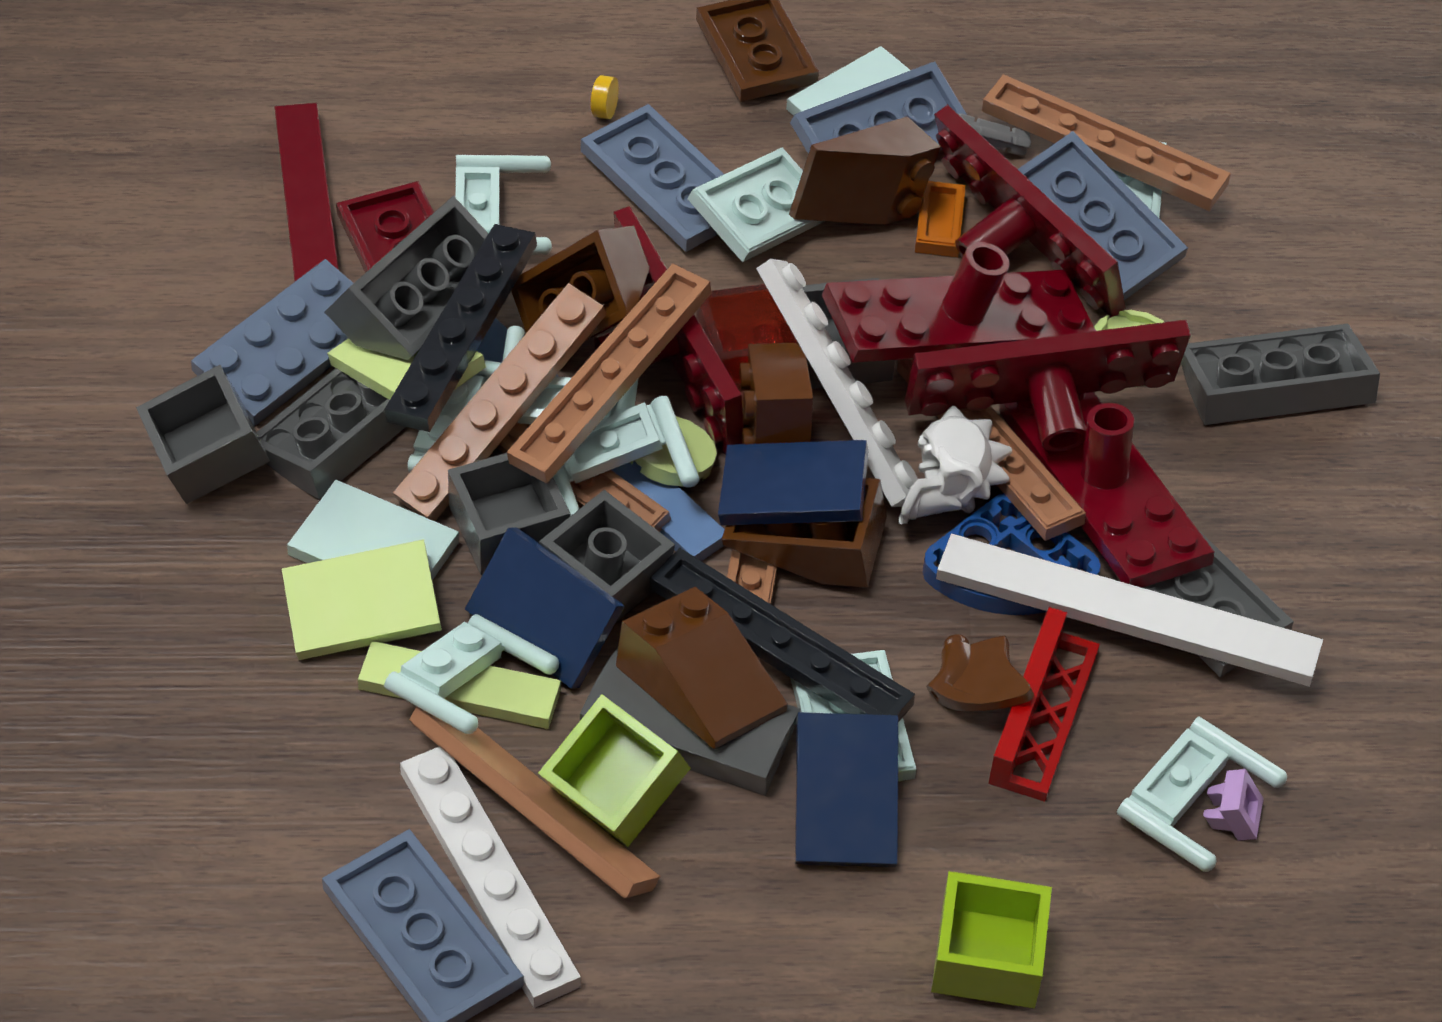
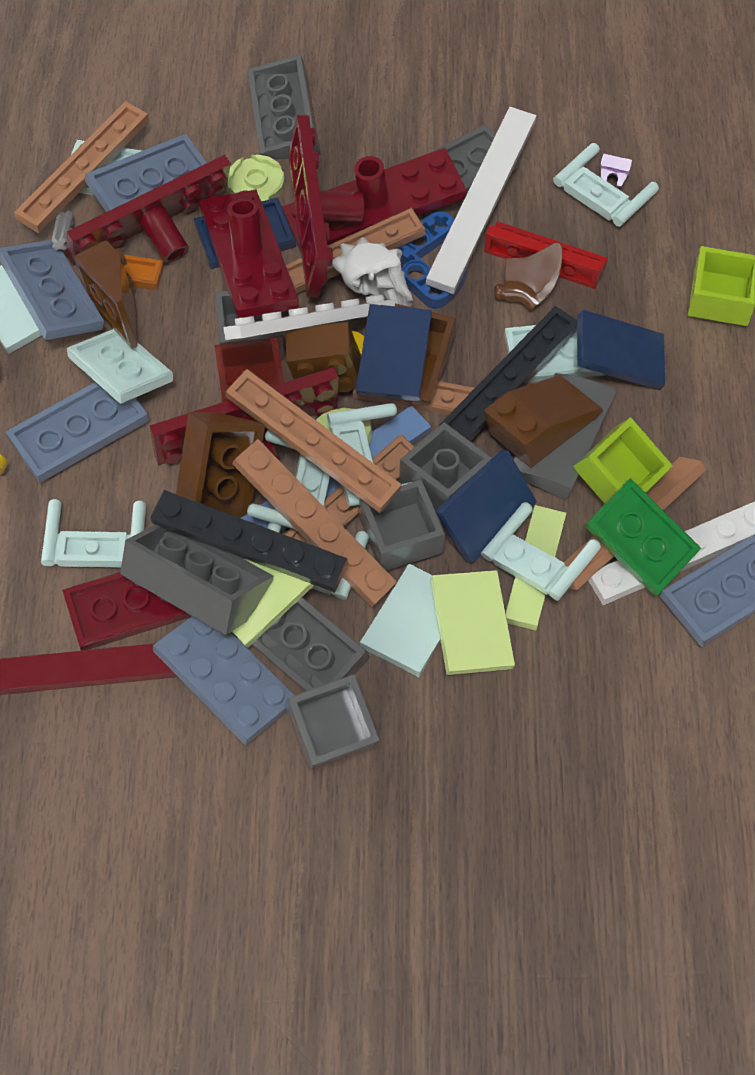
camera: 85 degrees left, 10 degrees up
(487, 789) = (642, 537): none -> green tile

